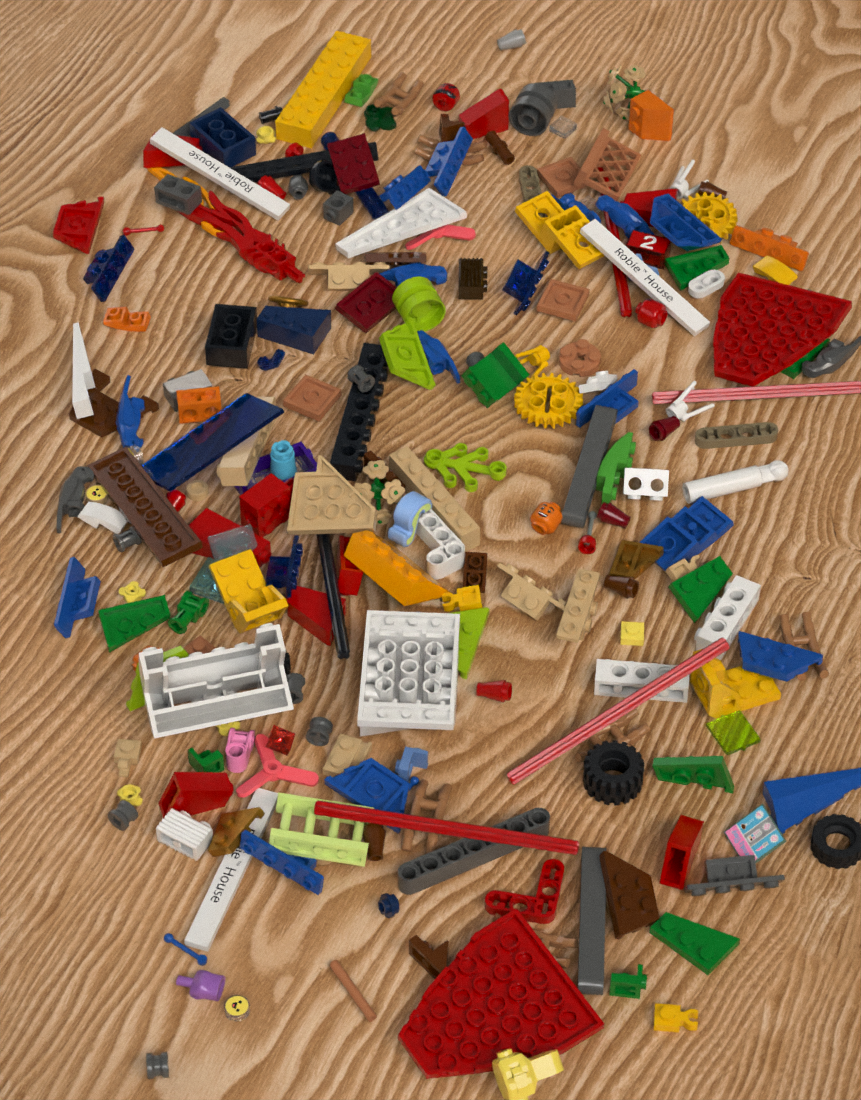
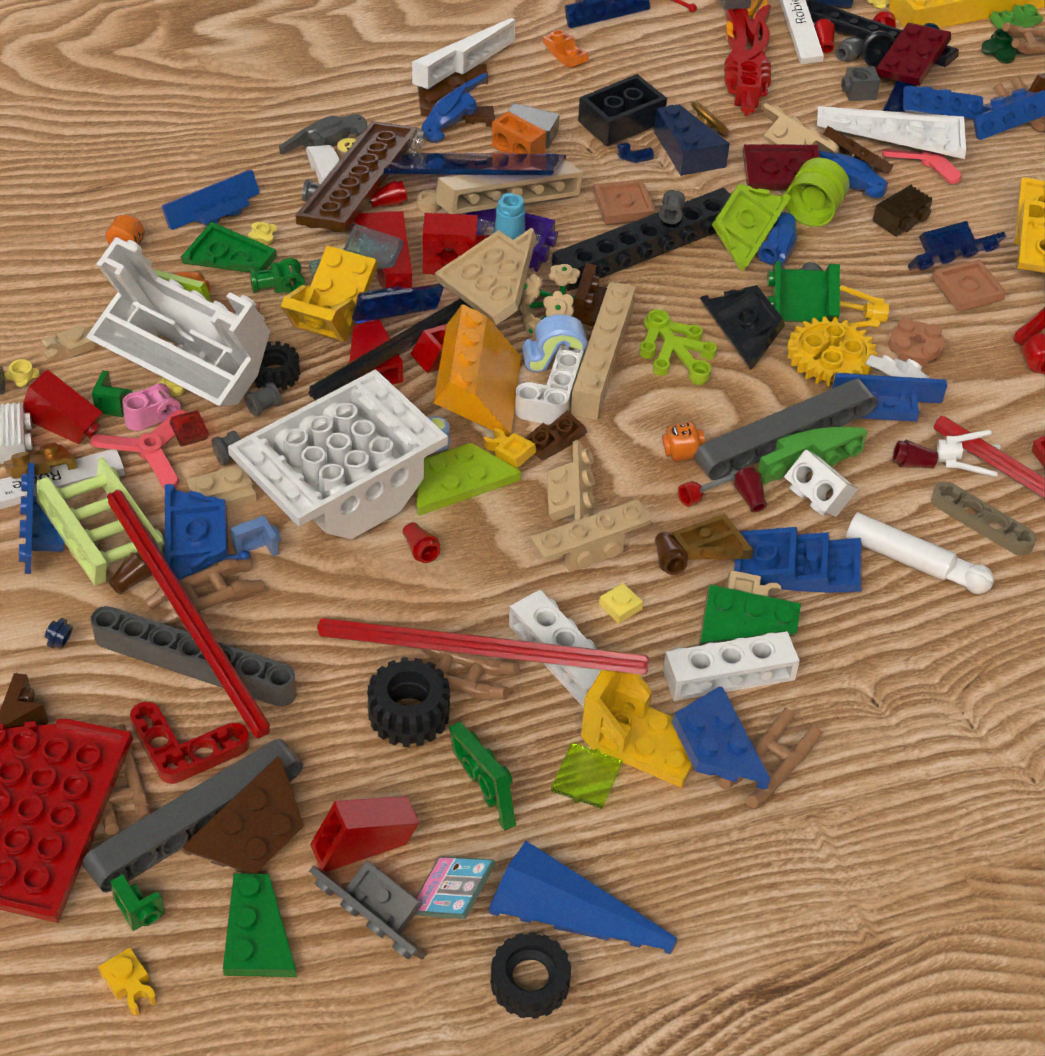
camera: 45 degrees right, 0 degrees up
(52, 663) = (125, 228): none -> orange head
(483, 418) = (746, 321): none -> black wing

